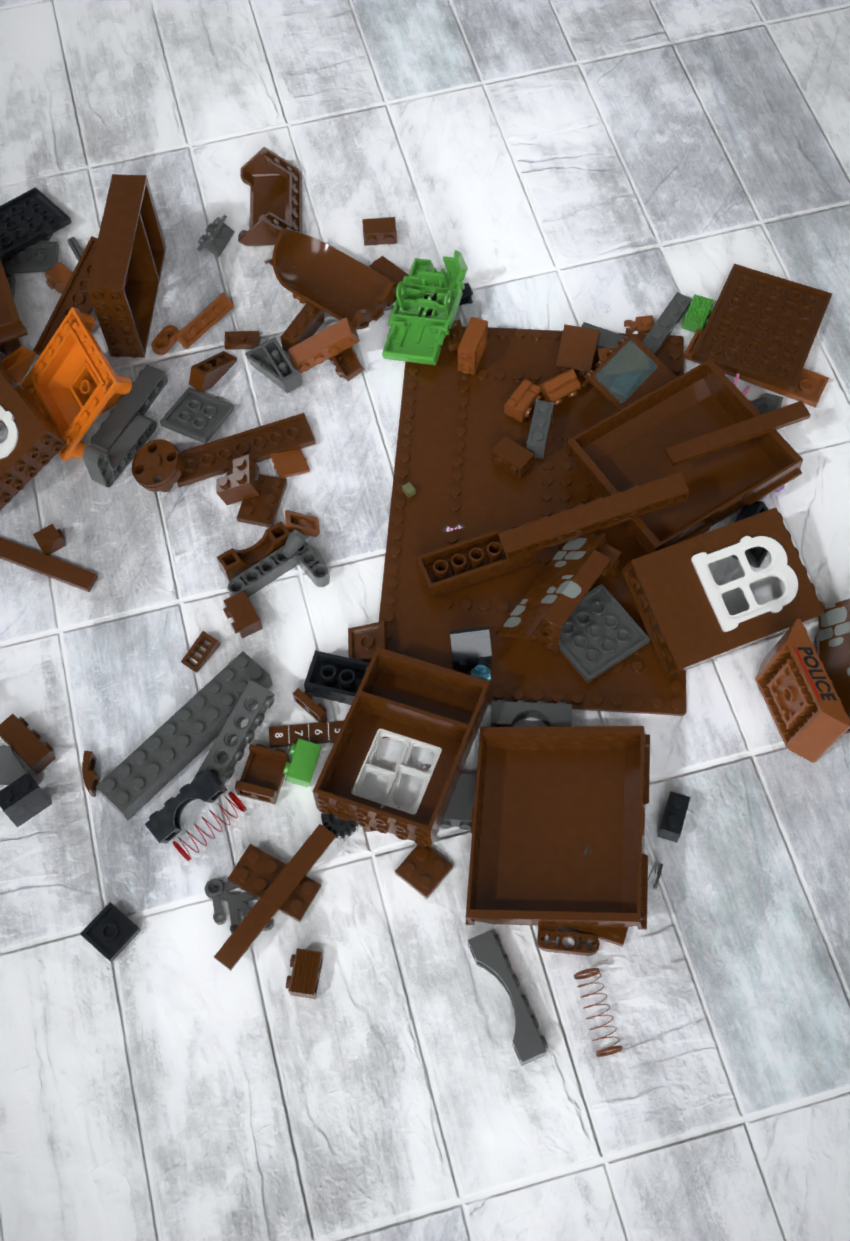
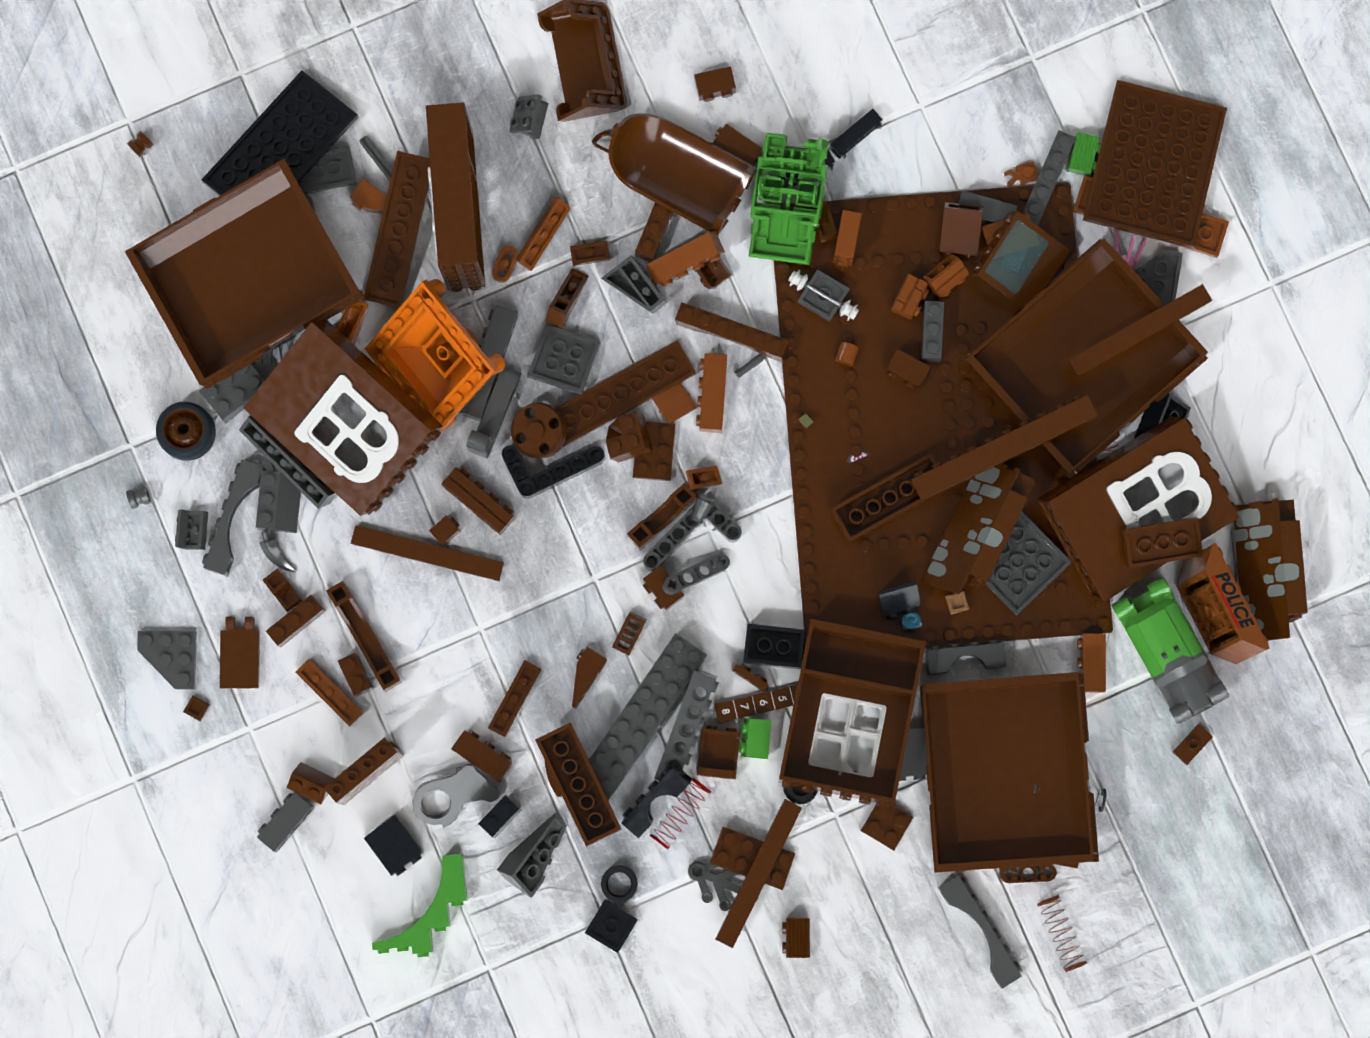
camera: 10 degrees left, 20 degrees up
(44, 852) = (528, 861): none -> dark grey wedge
(72, 695) = (514, 698): none -> reddish brown plate
(88, 519) = (478, 501): none -> reddish brown brick
(107, 774) = (578, 784): none -> reddish brown brick
(123, 875) = (604, 883): none -> black tyre
(150, 679) = (587, 670): none -> reddish brown slope
(162, 503) = (550, 472): none -> black beam
(274, 600) = (695, 572): none -> dark grey beam
(327, 458) = (713, 392): none -> dark orange brick
(329, 398) = (752, 338): none -> reddish brown arch
(365, 639) = (794, 603): reddish brown plate -> none
(373, 439) = (751, 364): none -> dark grey piece
(444, 391) = (823, 295): none -> dark grey plate
(458, 439) = (847, 354): none -> dark orange brick
(495, 278) = (856, 134): none -> black container
(529, 664) = (957, 603): none -> medium nougat tile
(662, 737) = (1092, 661): none -> dark orange brick
(673, 816) = (1111, 741): black brick -> none
(744, 617) = (1162, 542): none -> reddish brown plate
(746, 729) = (1171, 651): none -> piece
(760, 834) = (1192, 744): none -> reddish brown plate

